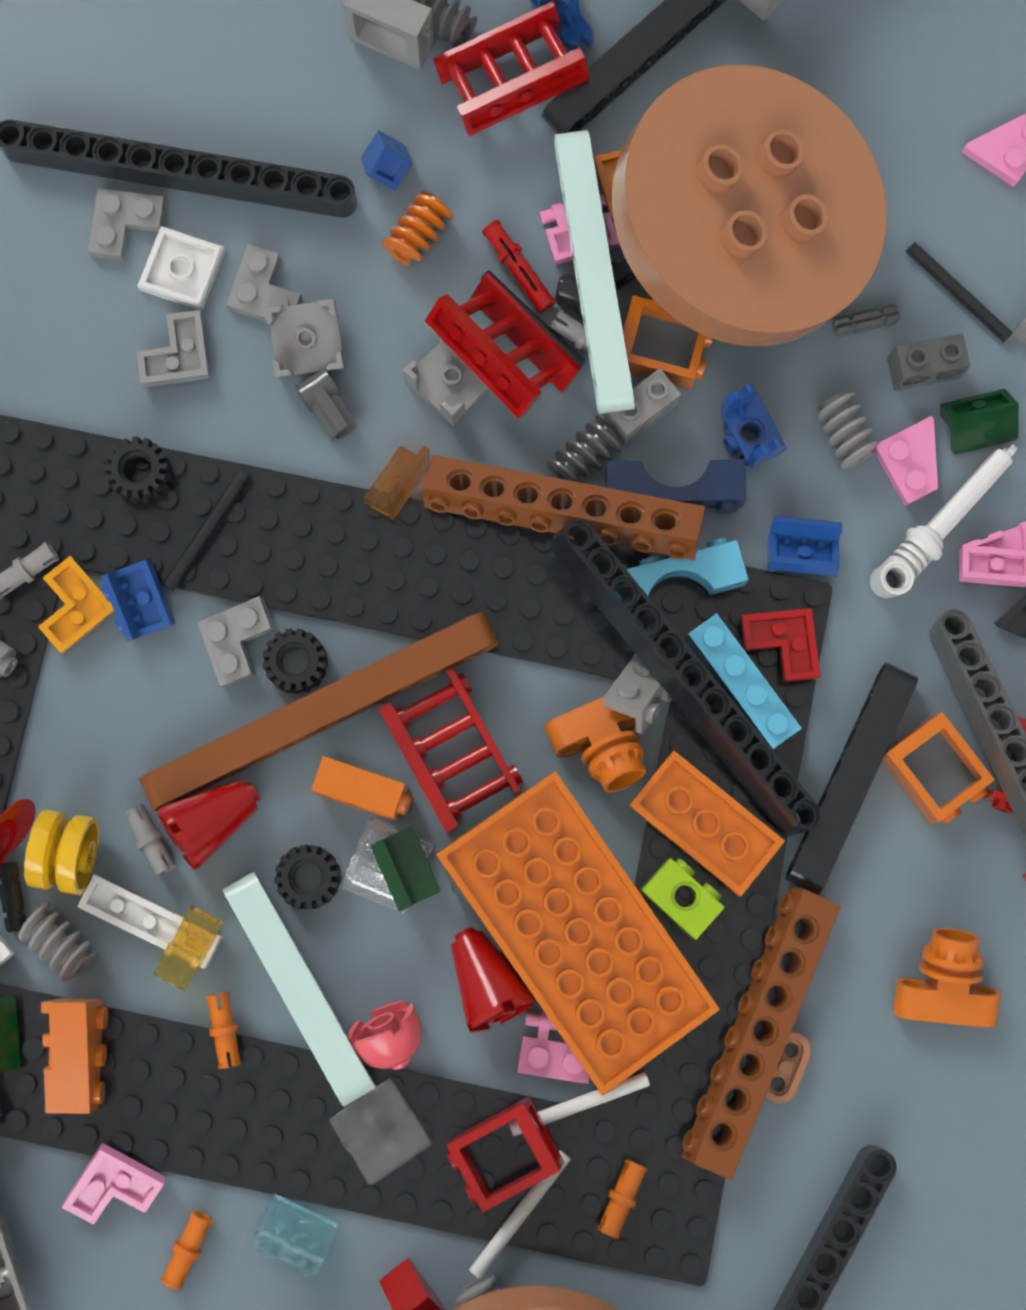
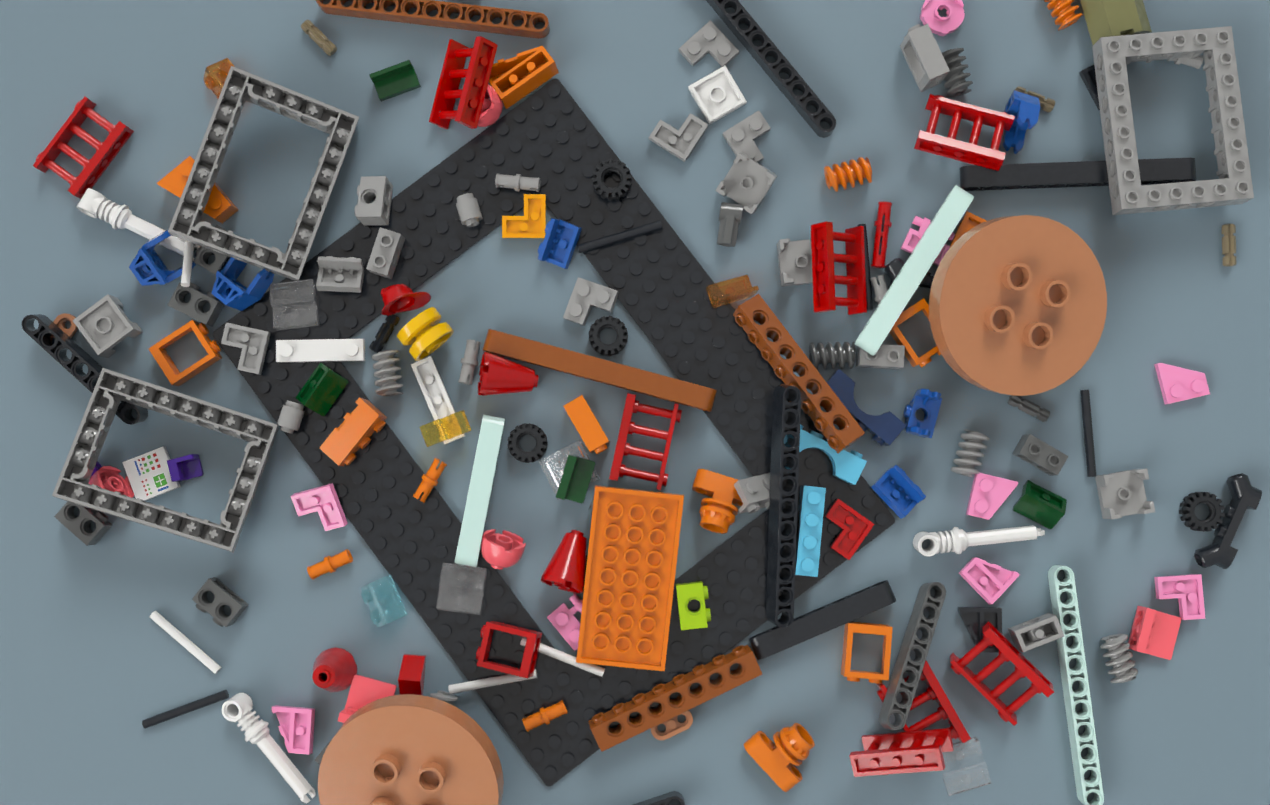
camera: 45 degrees right, 5 degrees up
(386, 160) = (863, 125): blue panel -> none
(706, 823) = (734, 581): orange plate -> none

